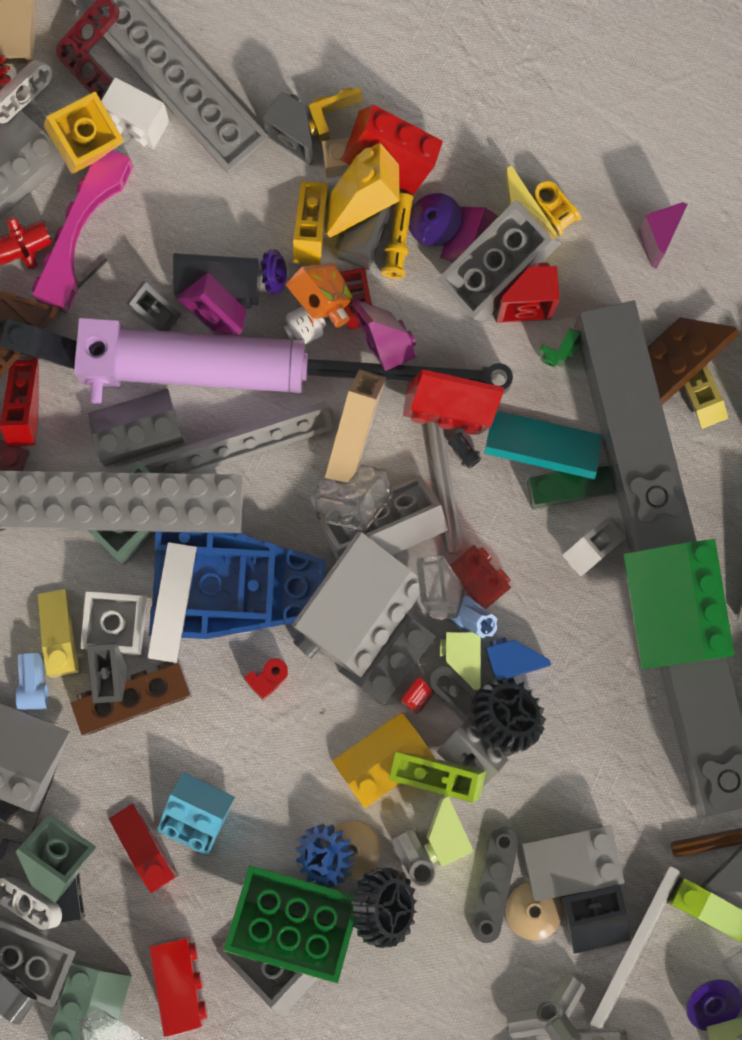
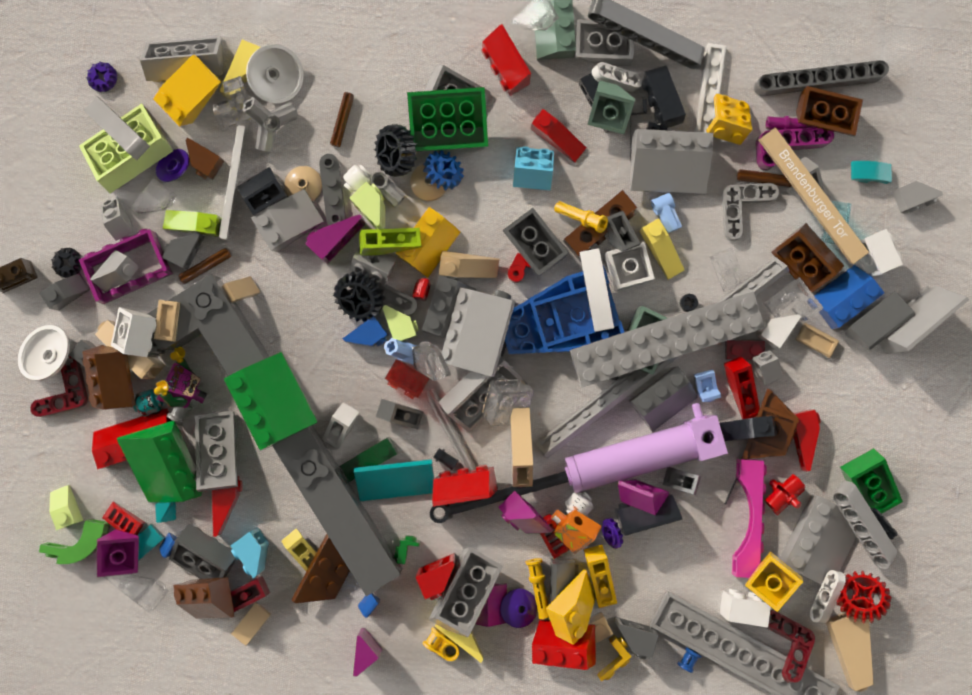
camera: 160 degrees right, 5 degrees up
(55, 540) = (687, 307): none -> black bush
(69, 422) = (707, 386): none -> light blue bracket
(147, 710) = (587, 218): none -> yellow pin
(232, 703) = (535, 242): none -> dark grey slope
(238, 72) = (689, 666): none -> blue bush
(339, 706) = (468, 265): none -> tan slope
(445, 987) = (342, 119): none -> reddish brown axle
(453, 888) = (356, 178): none -> white head
(507, 533) = (399, 414): none -> dark grey slope
(524, 809) = (333, 238): none -> magenta slope
(638, 291) = (368, 604): none -> blue slope
(667, 997) = (203, 160): none -> reddish brown slope
(672, 785) = (240, 289): none -> tan tile

